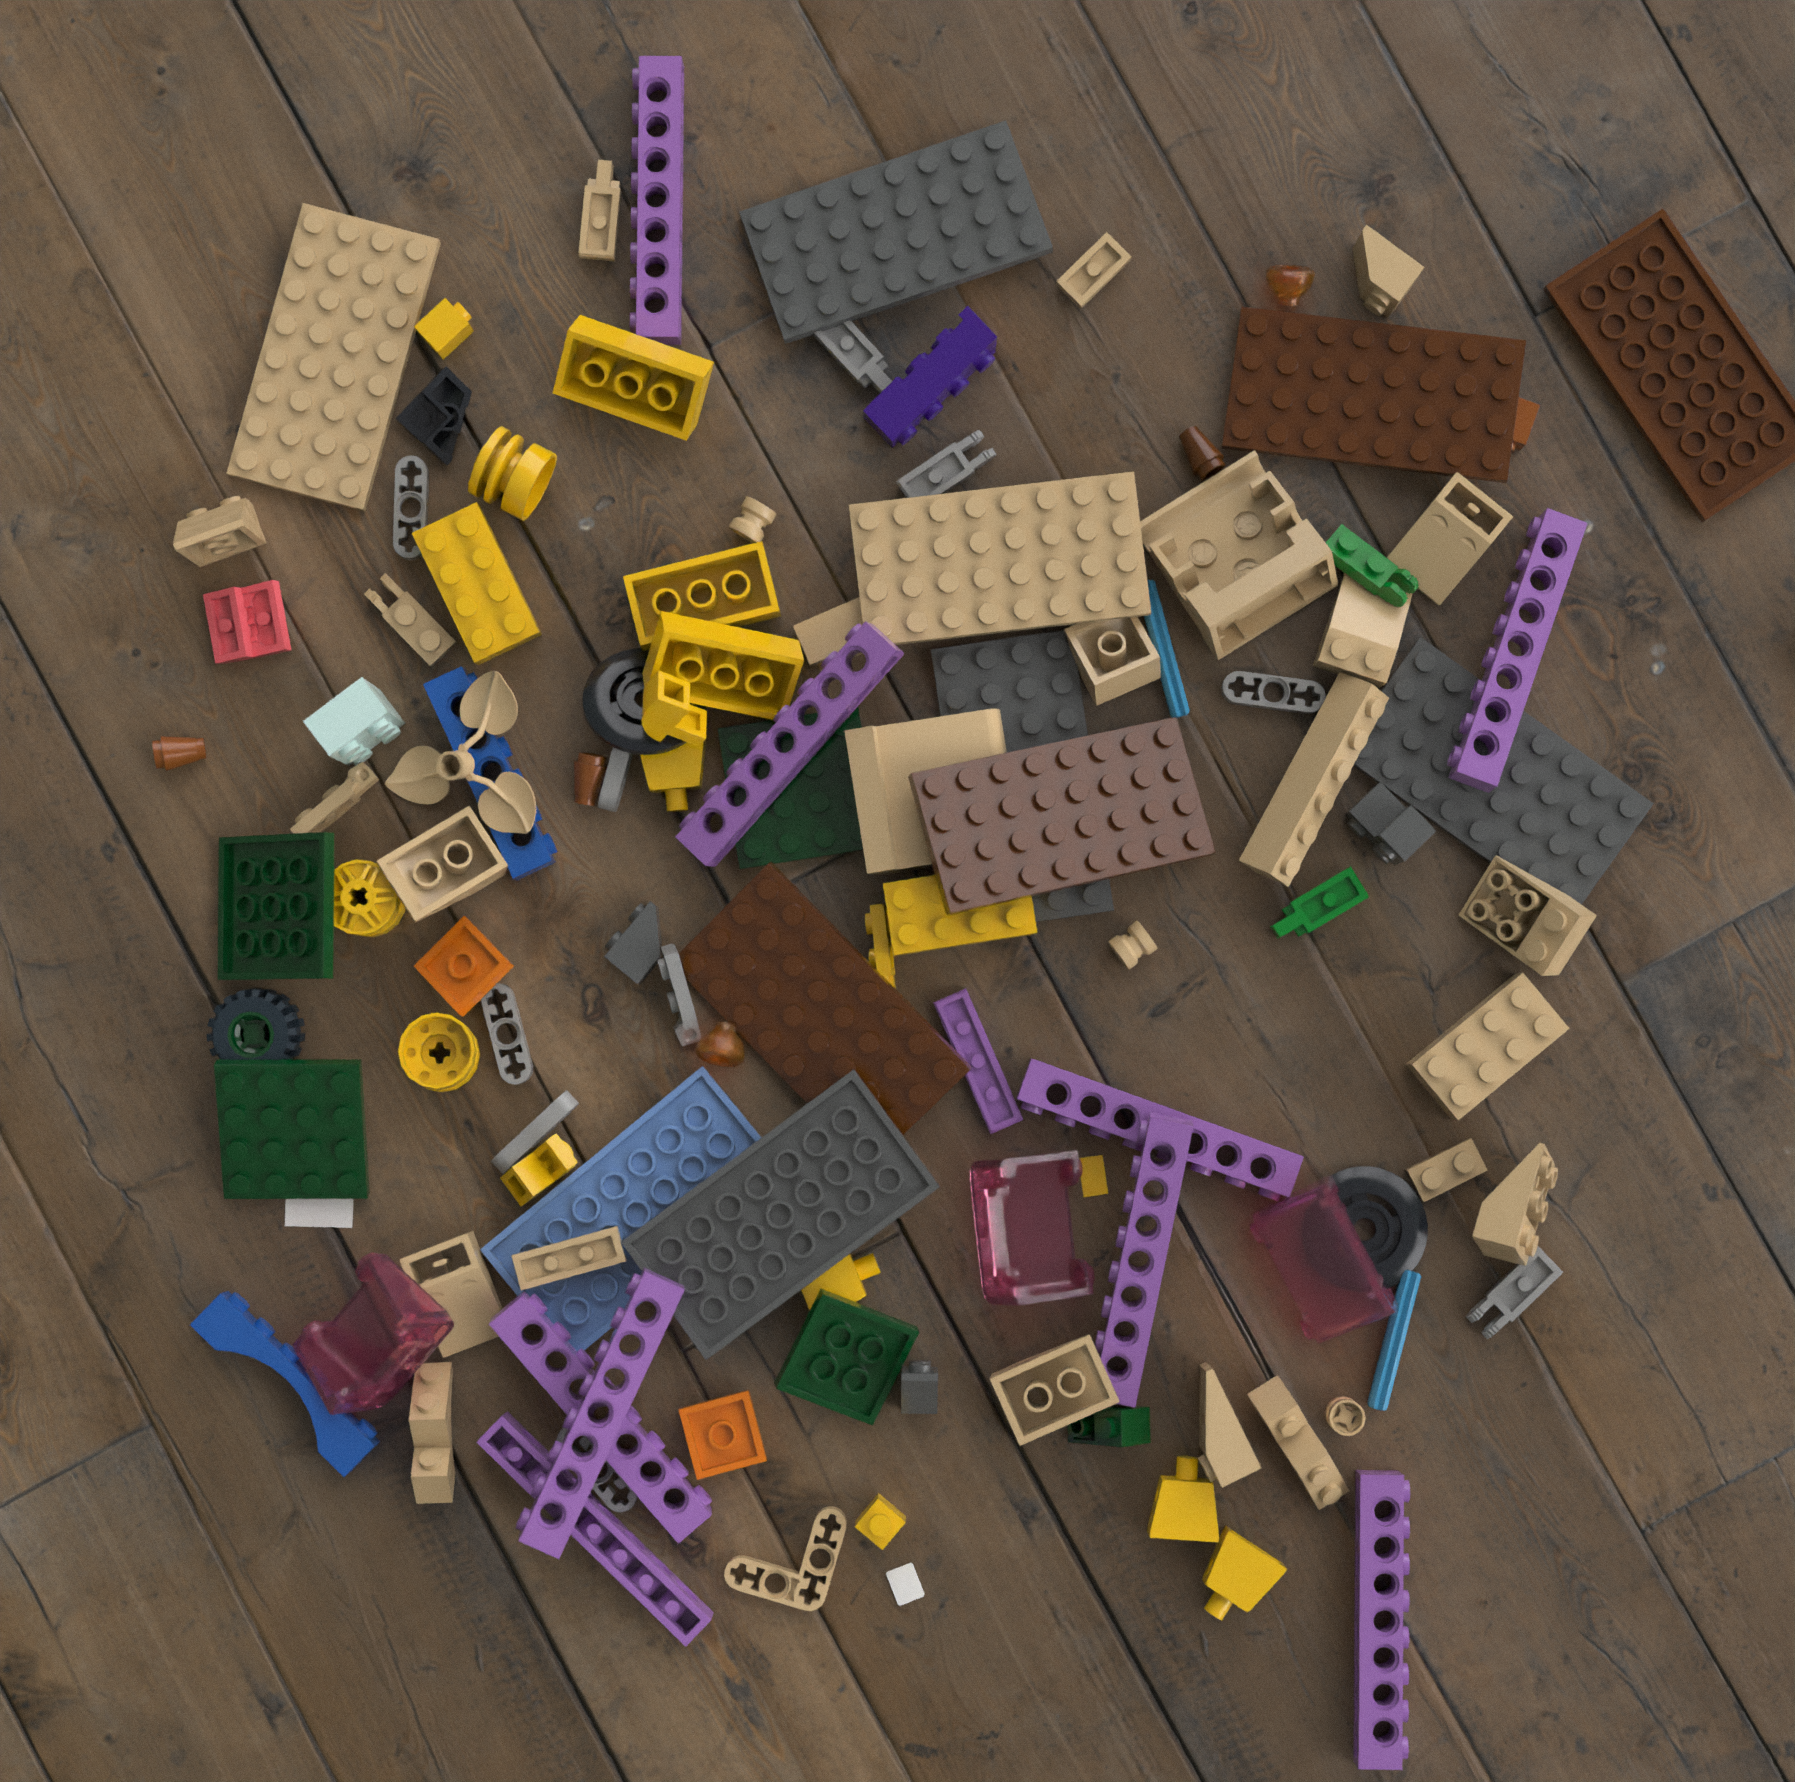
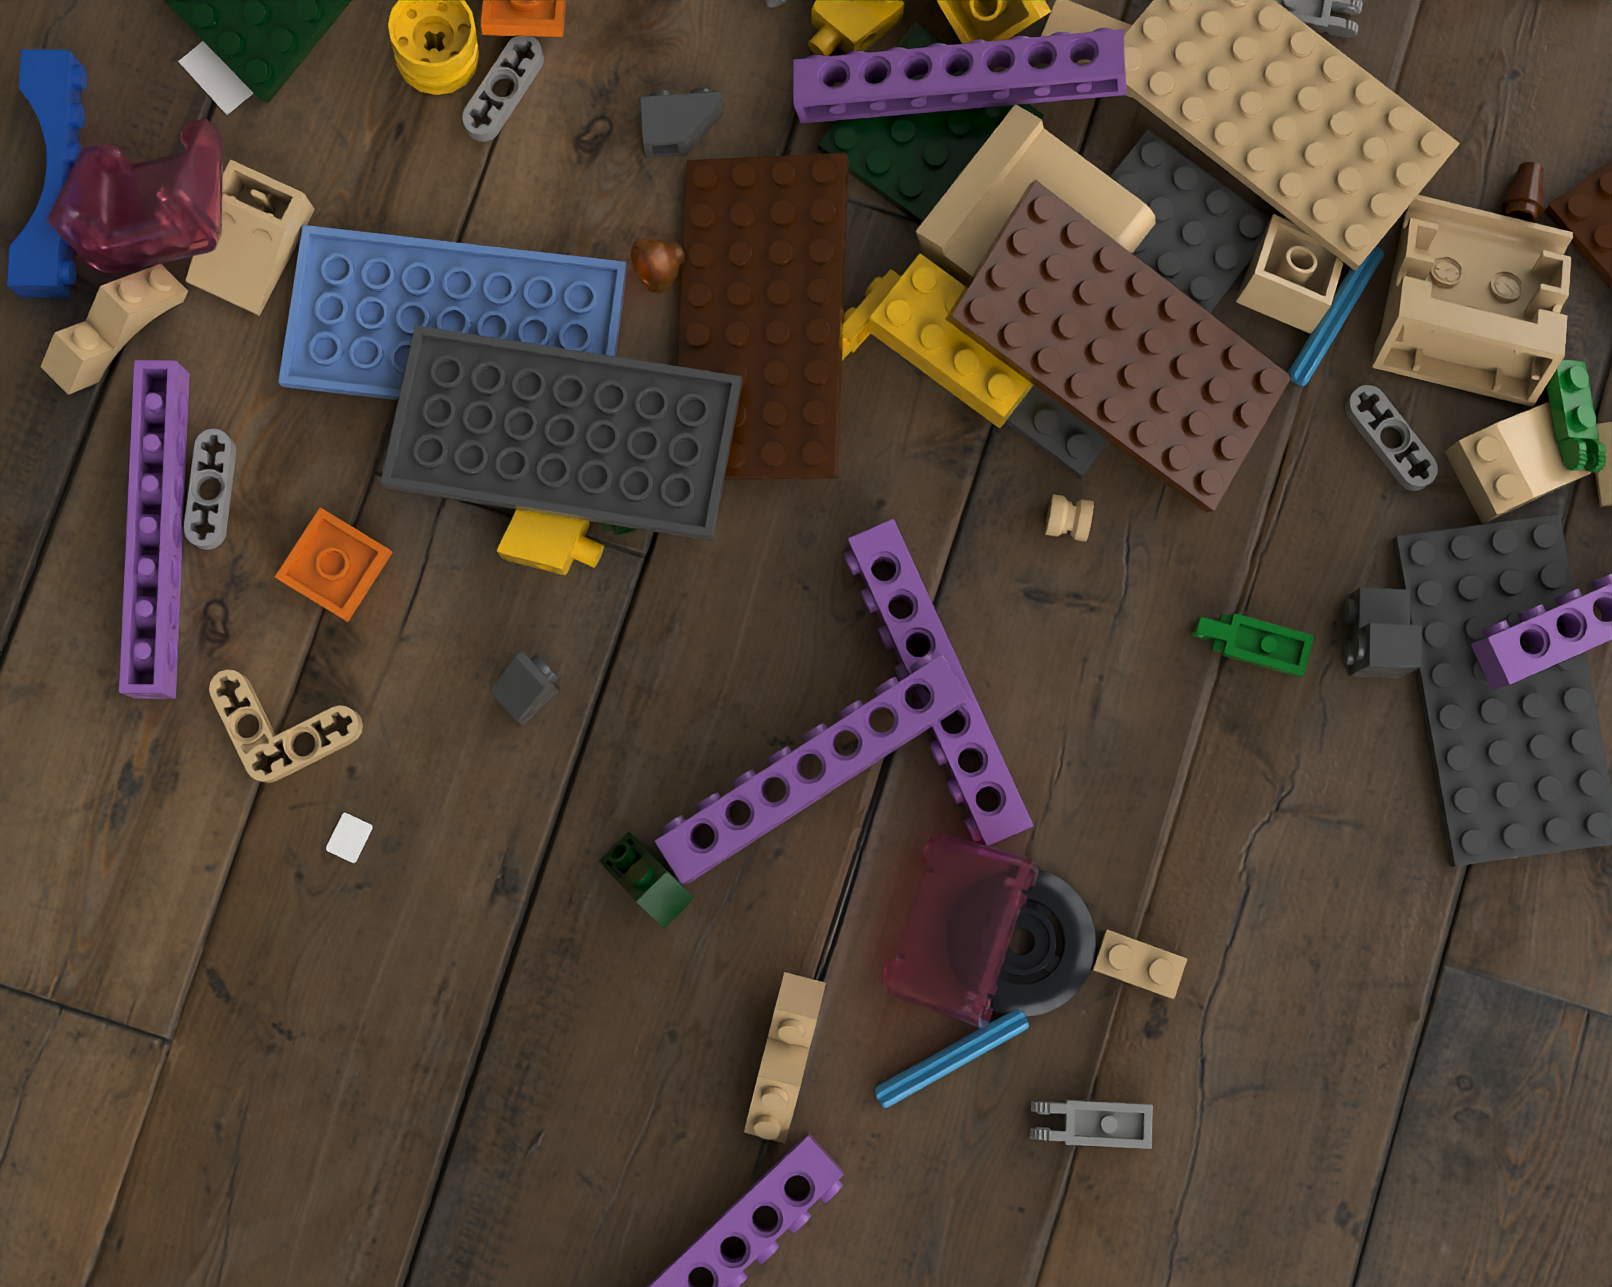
camera: 40 degrees right, 5 degrees down
(535, 1132) = (442, 181): light grey beam -> none
(539, 1169) = (414, 211): yellow brick -> none
(553, 1534) = (102, 466): medium lavender brick -> none
(569, 1258) = (362, 297): tan plate -> none
(676, 1518) = (257, 301): medium lavender brick -> none
(679, 999) = (666, 191): light grey hinge -> none
(846, 1357) = (494, 600): dark green plate -> none
(880, 1521) = (381, 762): yellow brick -> none
(986, 1076) = (844, 496): medium lavender tile -> none
(1028, 1228) = (750, 652): clear pink windscreen -> none
(1053, 1389) = (631, 799): tan slope -> none
(1093, 1176) = (844, 670): yellow sticker -> none
(1184, 1505) = (638, 1010): yellow torso -> none
(1221, 1438) = (725, 986): tan slope -> none
(1239, 1574) = (622, 1114): yellow torso -> none
(1314, 779) = (1356, 534): tan brick -> none
(1350, 1418) = (849, 1081): tan wheel -> none
(1487, 1046) = (1279, 895): tan brick -> none
(1515, 1208) = (1167, 1051): tan slope -> none
(1527, 917) = (1421, 824): tan slope -> none

